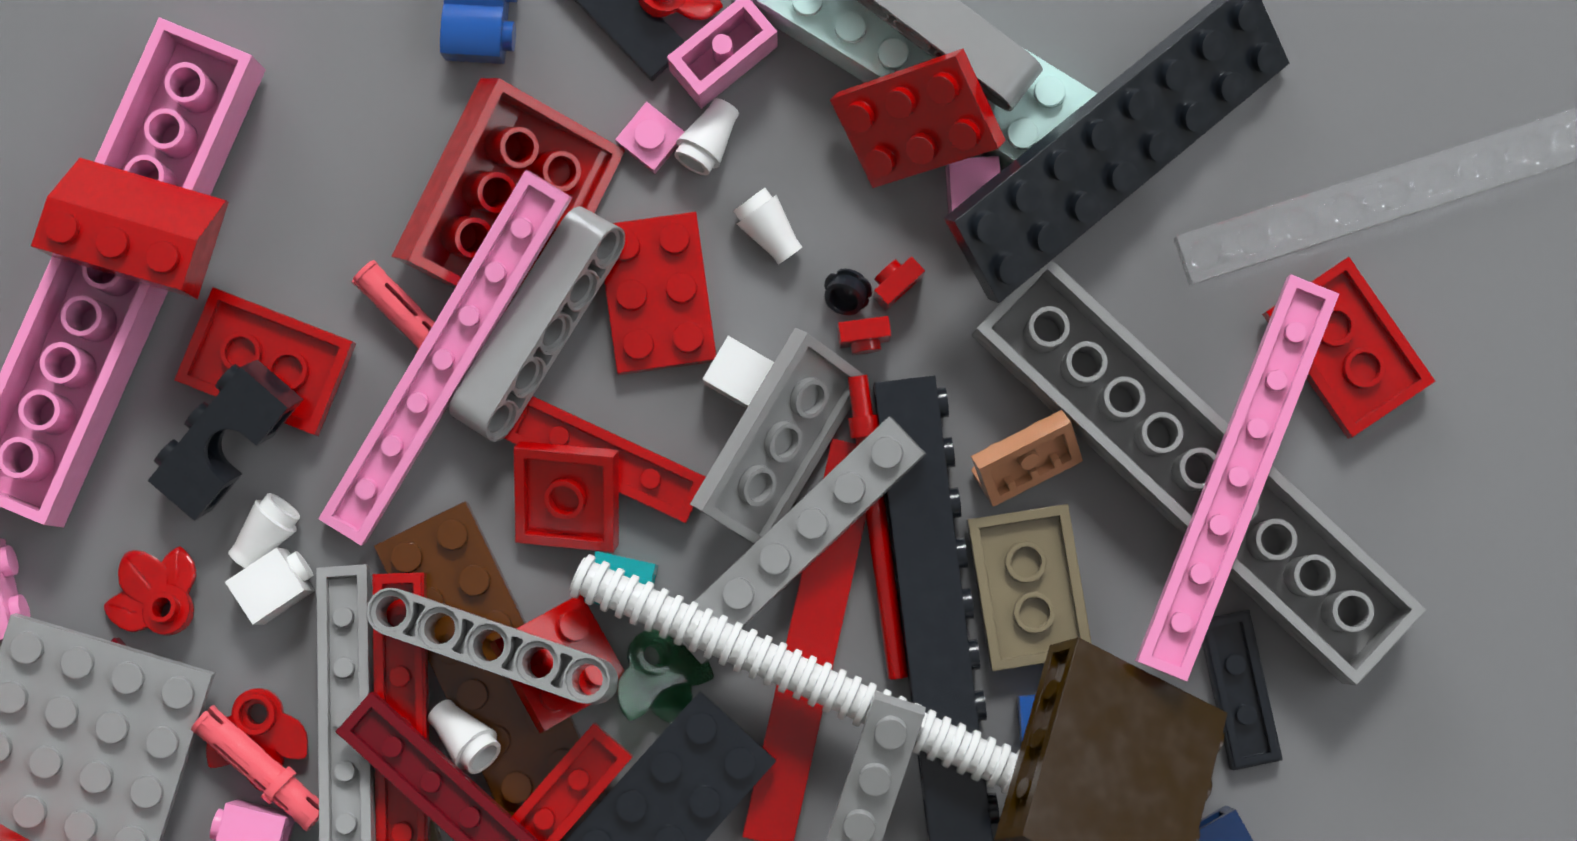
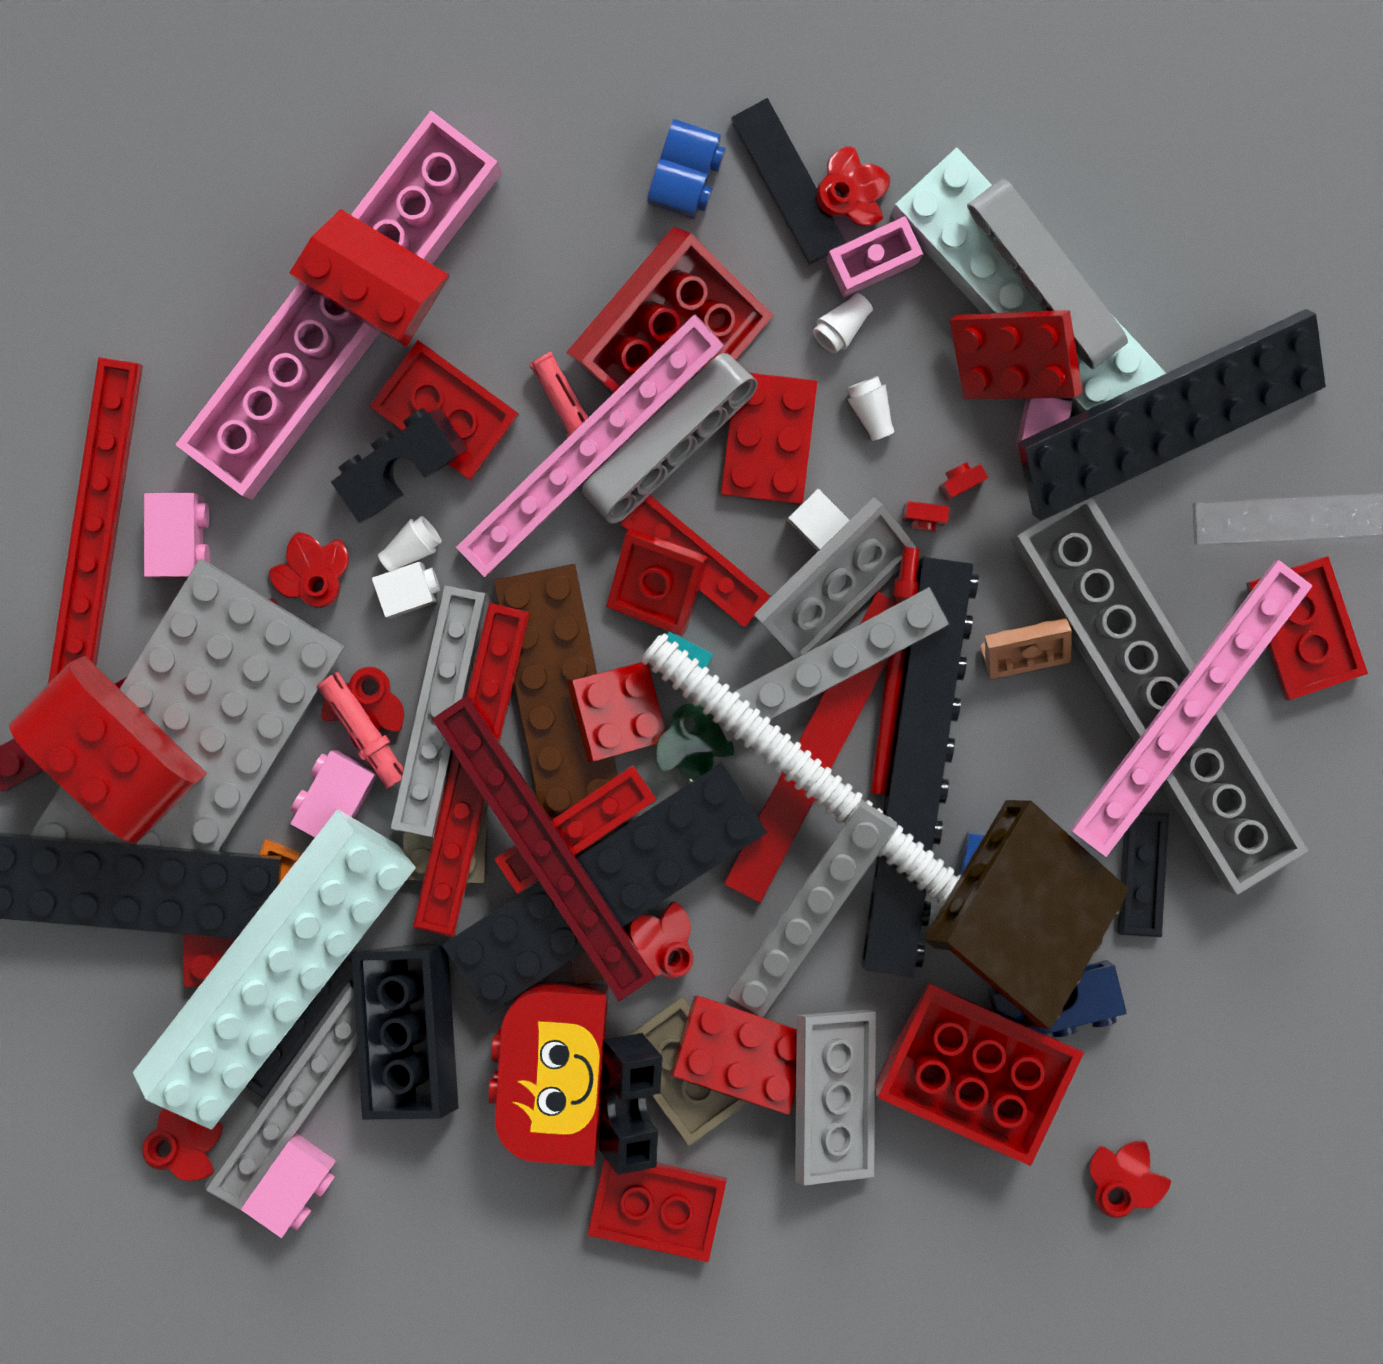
camera: 15 degrees right, 5 degrees up
(465, 738) = (529, 749): white cone -> none
(468, 641) = (556, 671): light grey beam -> none
(650, 137) = (796, 310): bright pink plate -> none
(847, 292) = (921, 477): black plate -> none
(1027, 584) = (1000, 747): dark tan plate -> none

